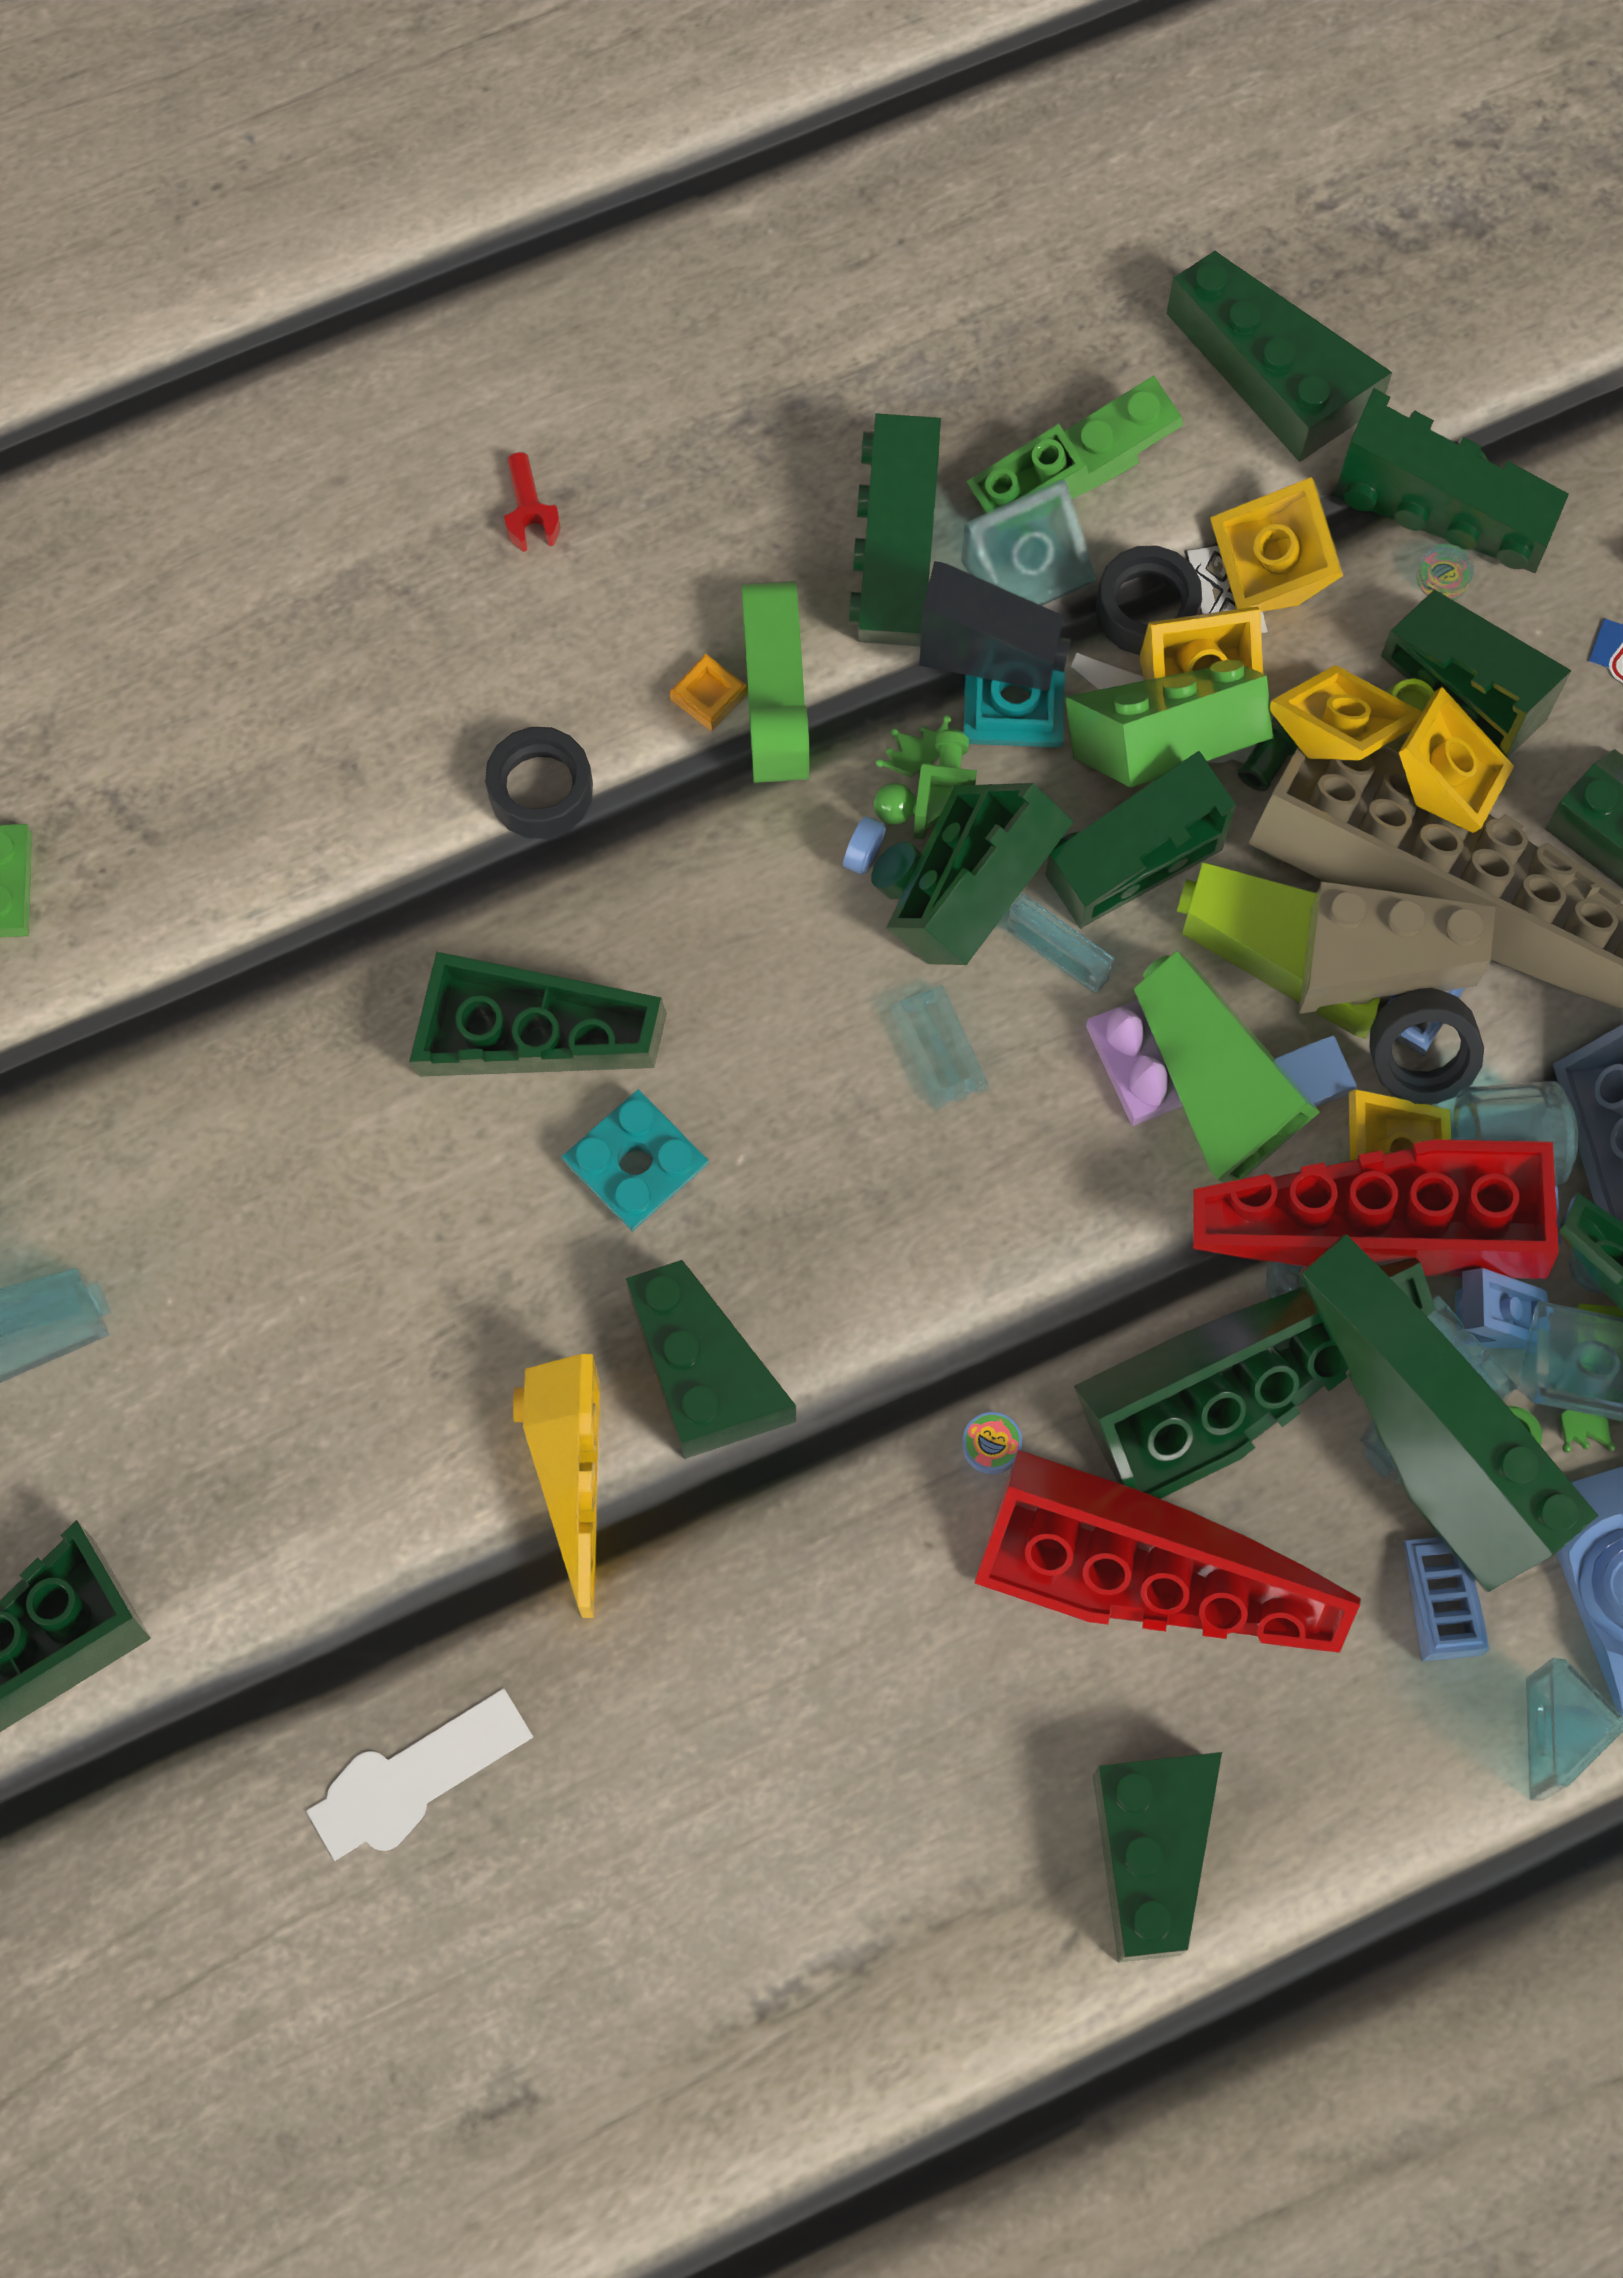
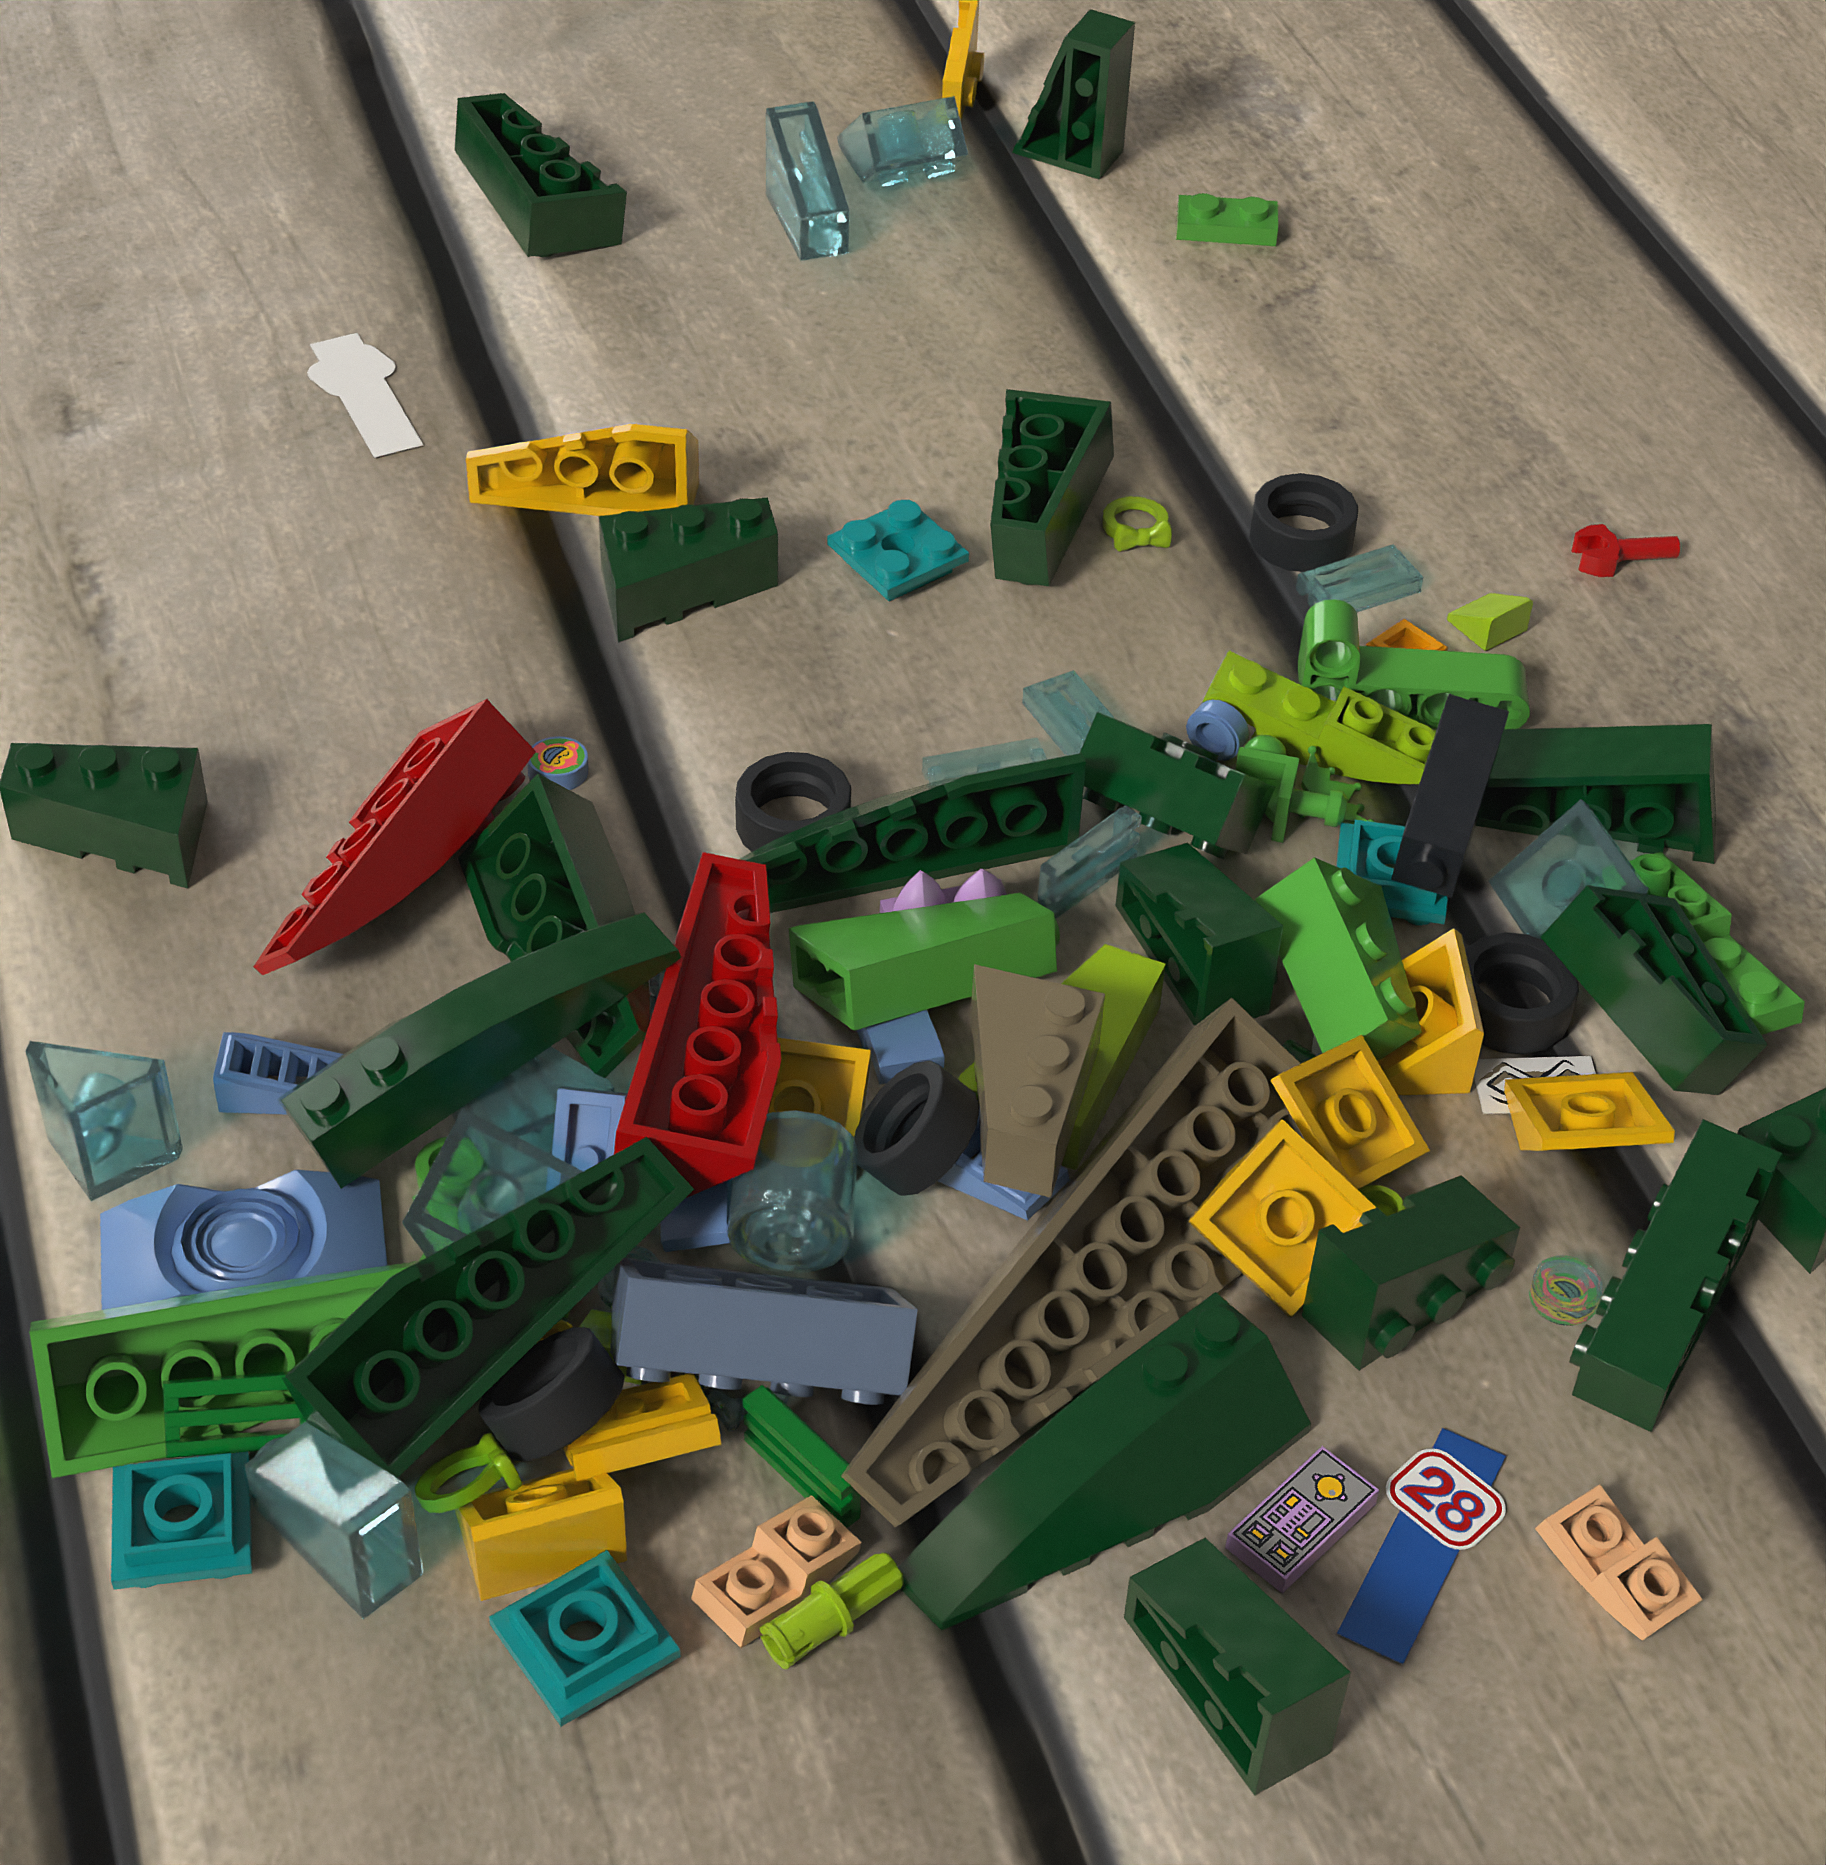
camera: 95 degrees right, 25 degrees down
(564, 921) = (1127, 537): none -> lime piece
(634, 769) = (1363, 588): none -> clear light blue tile
(650, 617) = (1492, 618): none -> lime slope
(816, 1001) = (1055, 714): none -> clear light blue tile
(845, 751) = (1350, 735): none -> lime slope
(1032, 1050) = (931, 828): none -> dark green wedge
(1041, 1168) = (784, 776): none -> black tyre
(1152, 481) = (1657, 985): none -> dark green wedge

